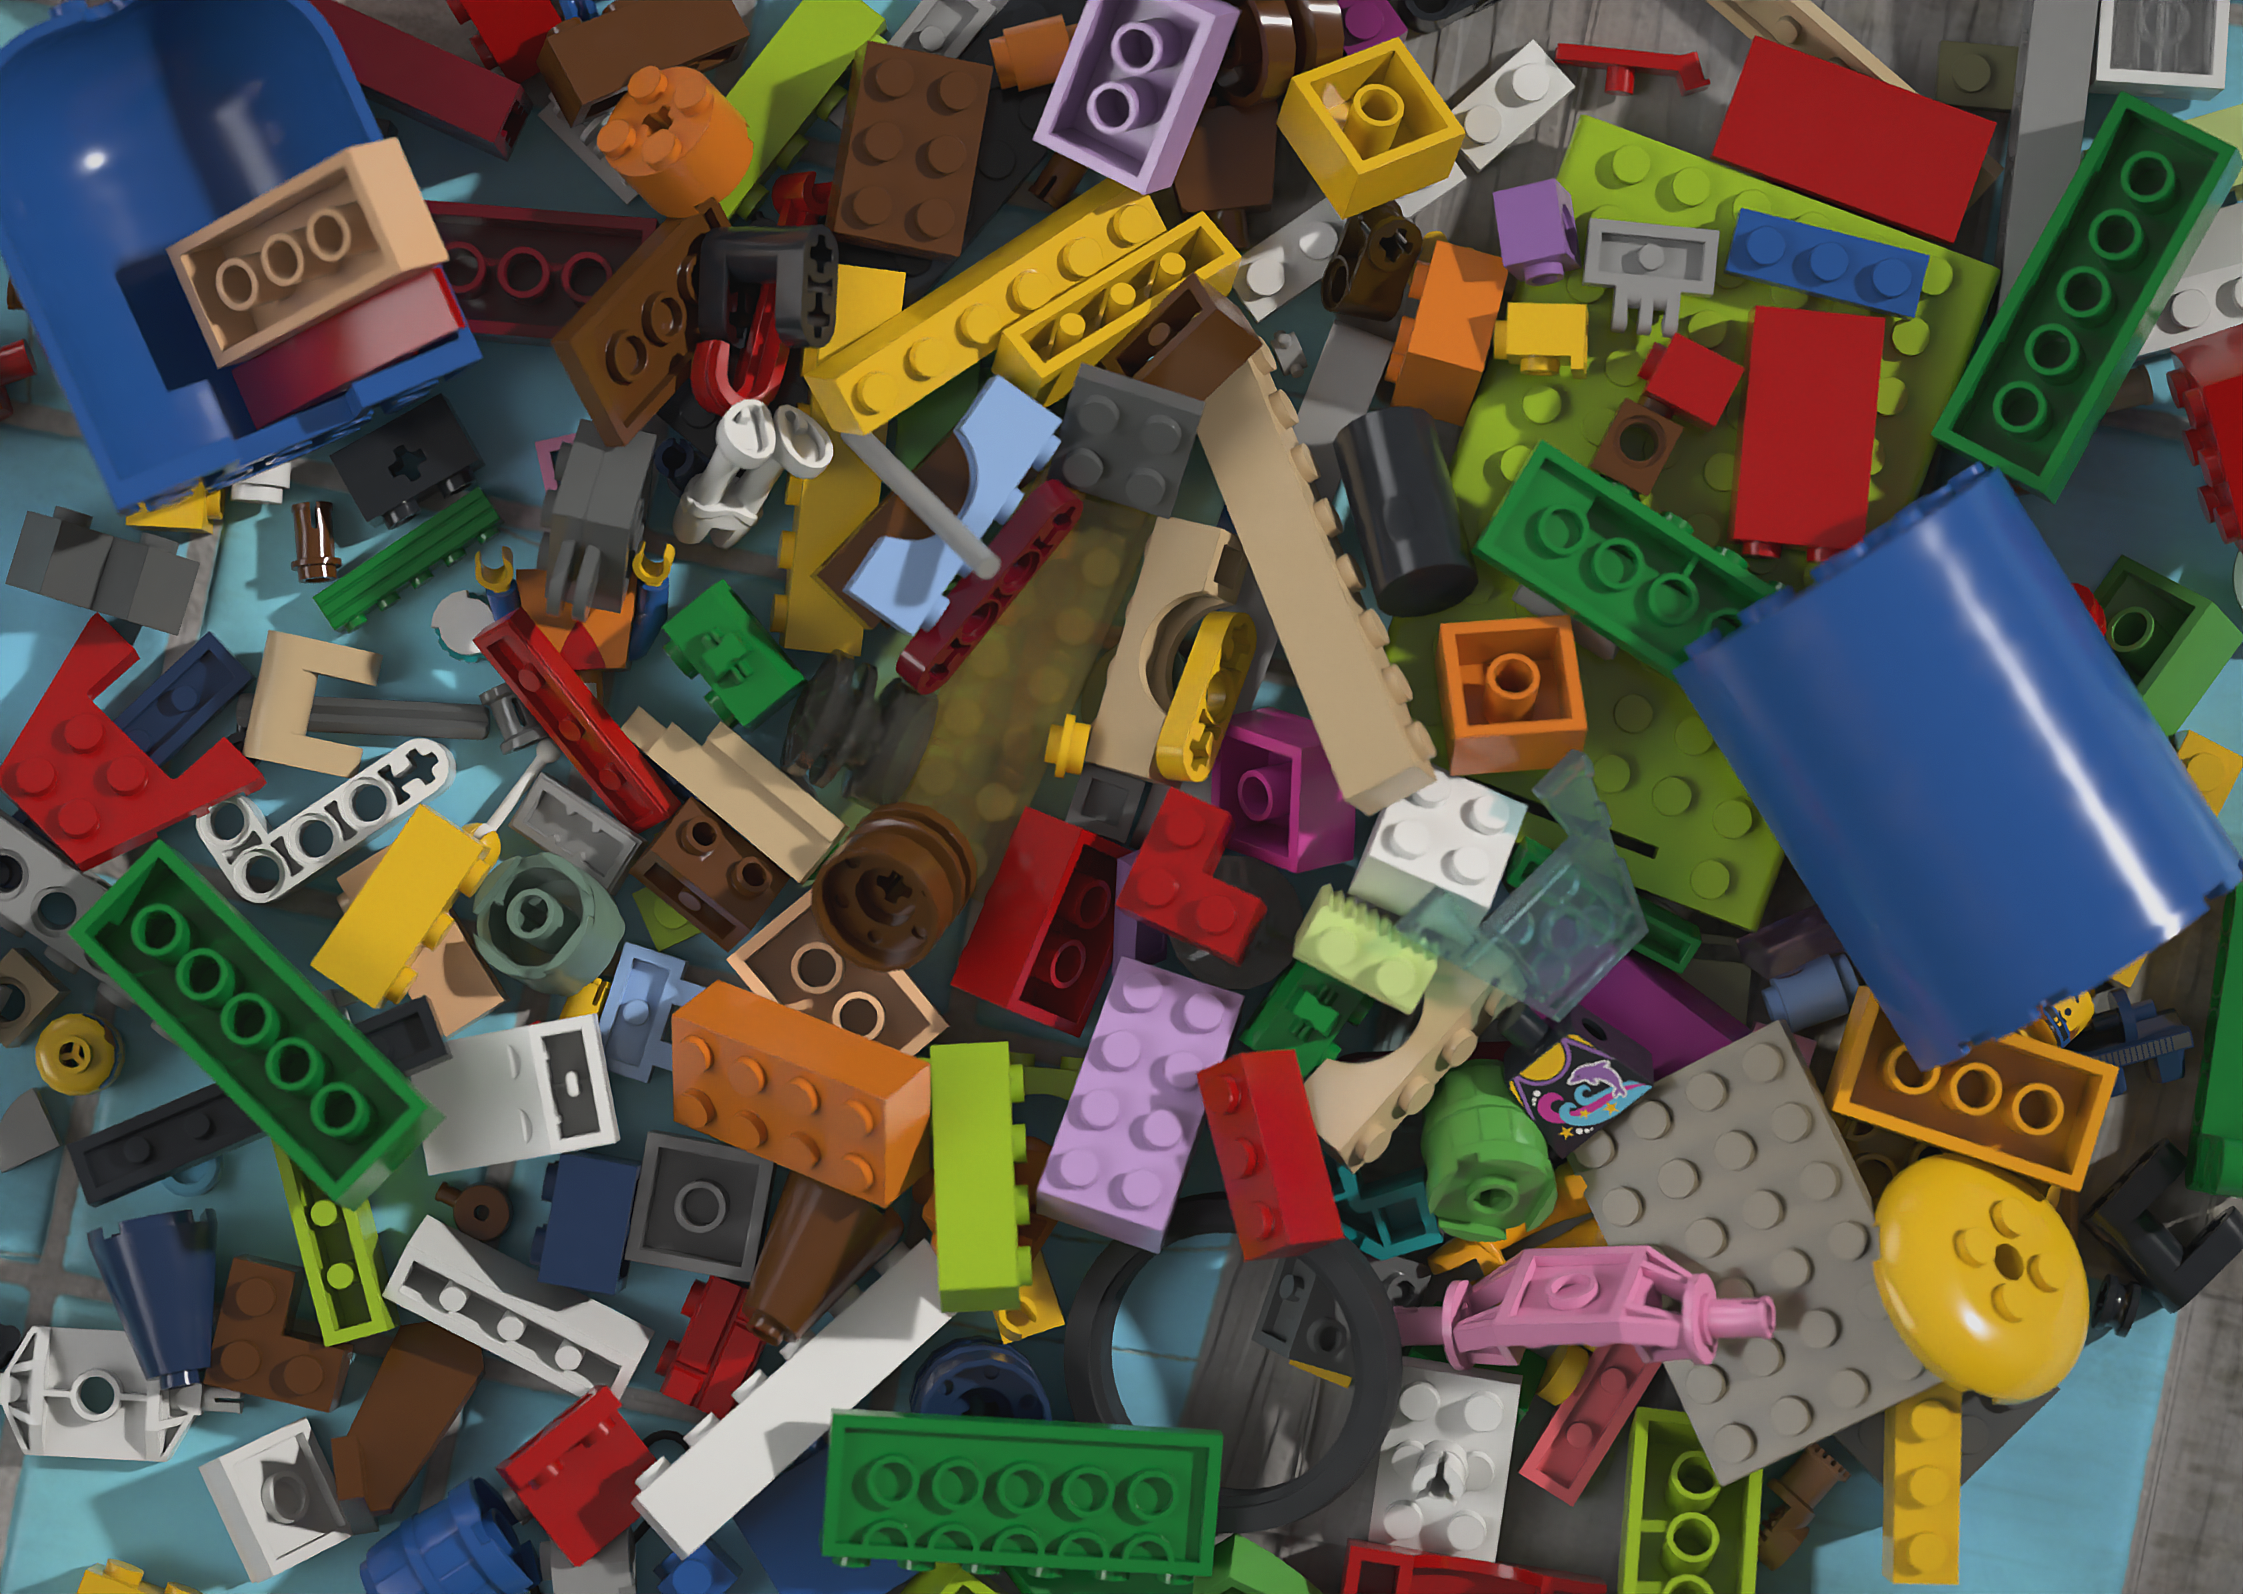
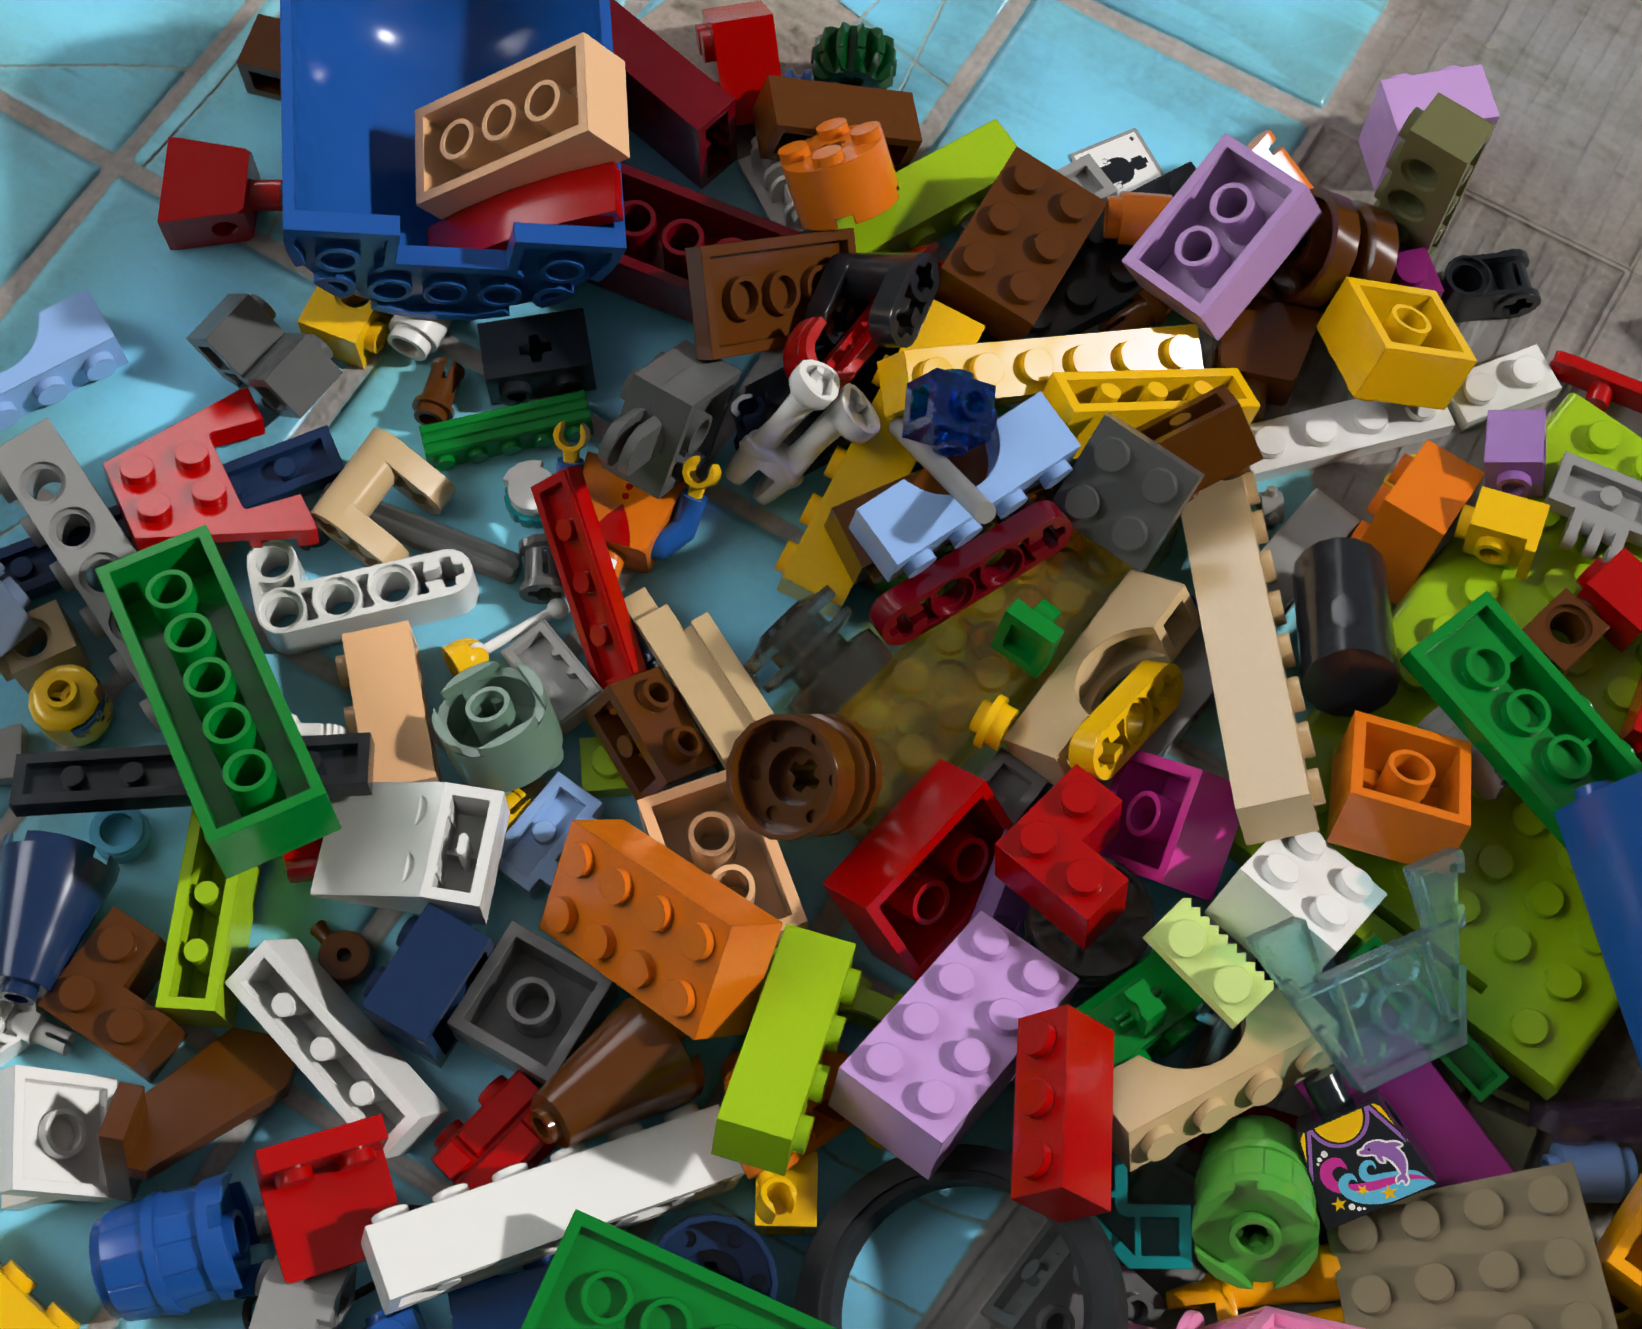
camera: 20 degrees right, 20 degrees down
(403, 908) = (384, 663): yellow brick -> none
(735, 657) = (735, 570): green hinge -> none
(909, 440) = (949, 411): none -> clear blue brick
(1075, 639) = (1029, 635): none -> green tile
(1371, 266) = (1362, 457): dark brown piece -> none

